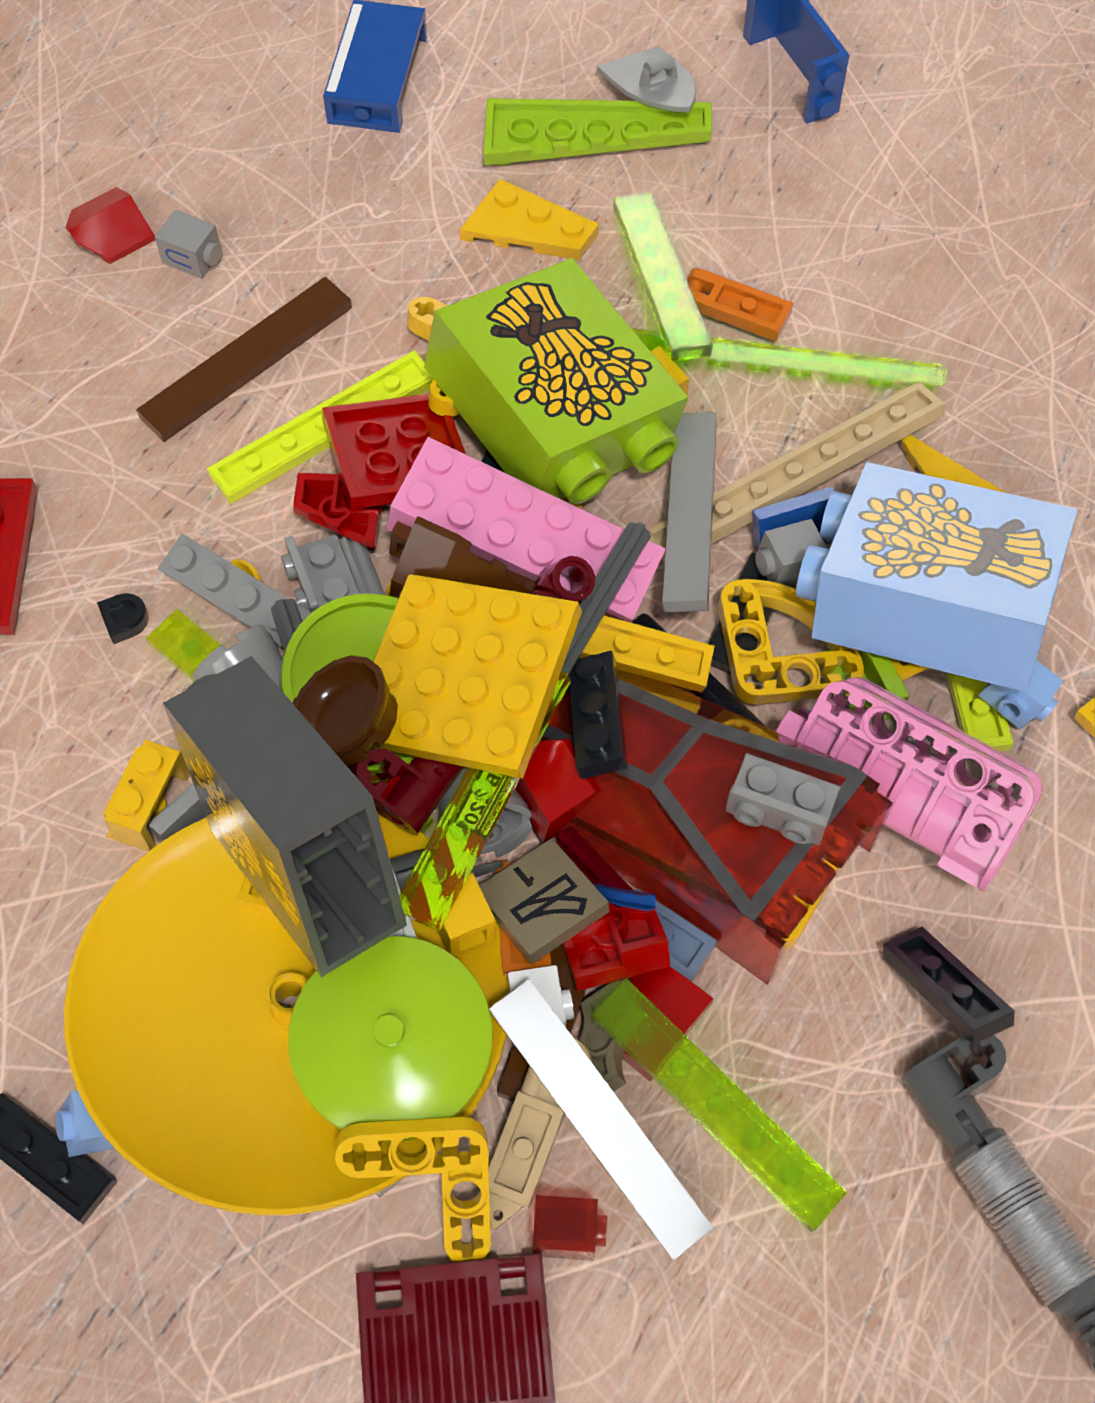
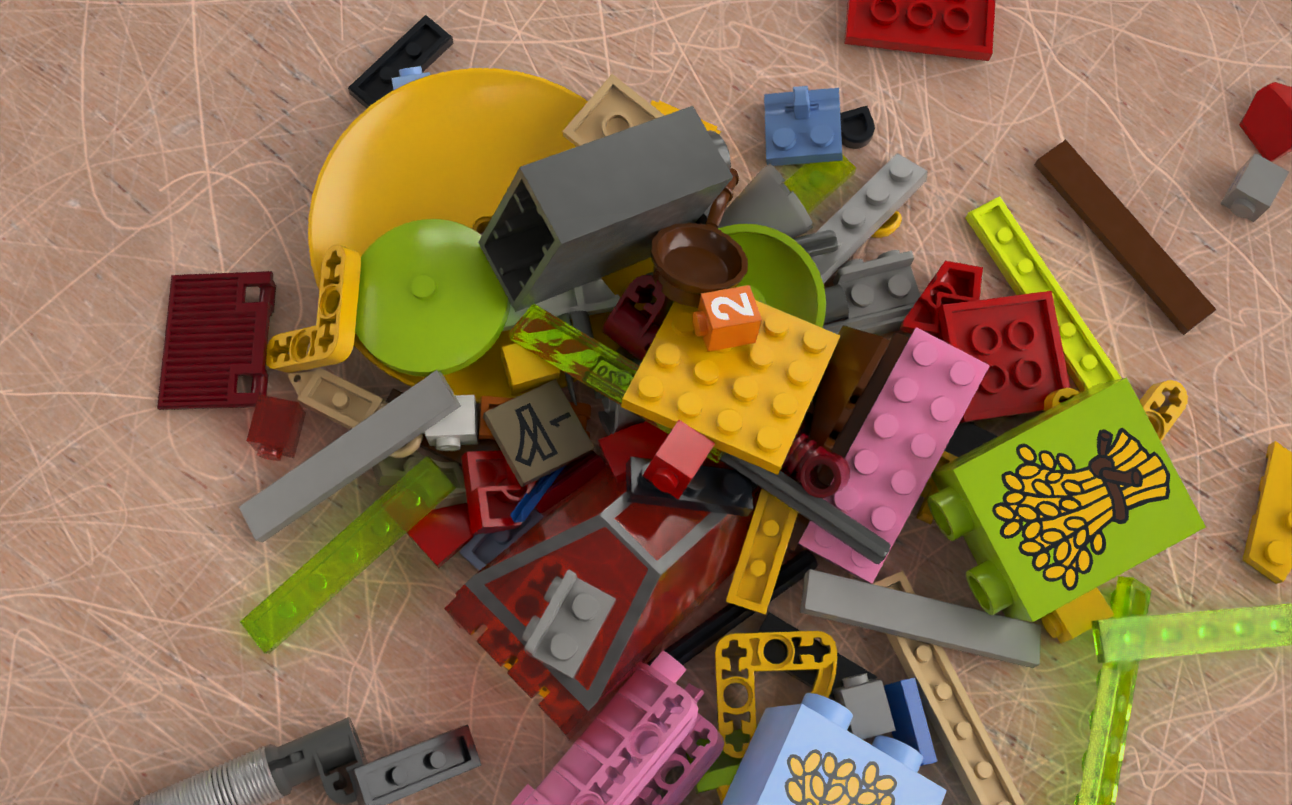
camera: 90 degrees right, 10 degrees up
(127, 664) = (803, 126): none -> medium blue hinge
(148, 849) = (608, 112): none -> tan hinge
(410, 668) = (727, 318): none -> orange brick
(579, 708) = (678, 459): none -> brick
(739, 304) = (1176, 710): orange plate -> none

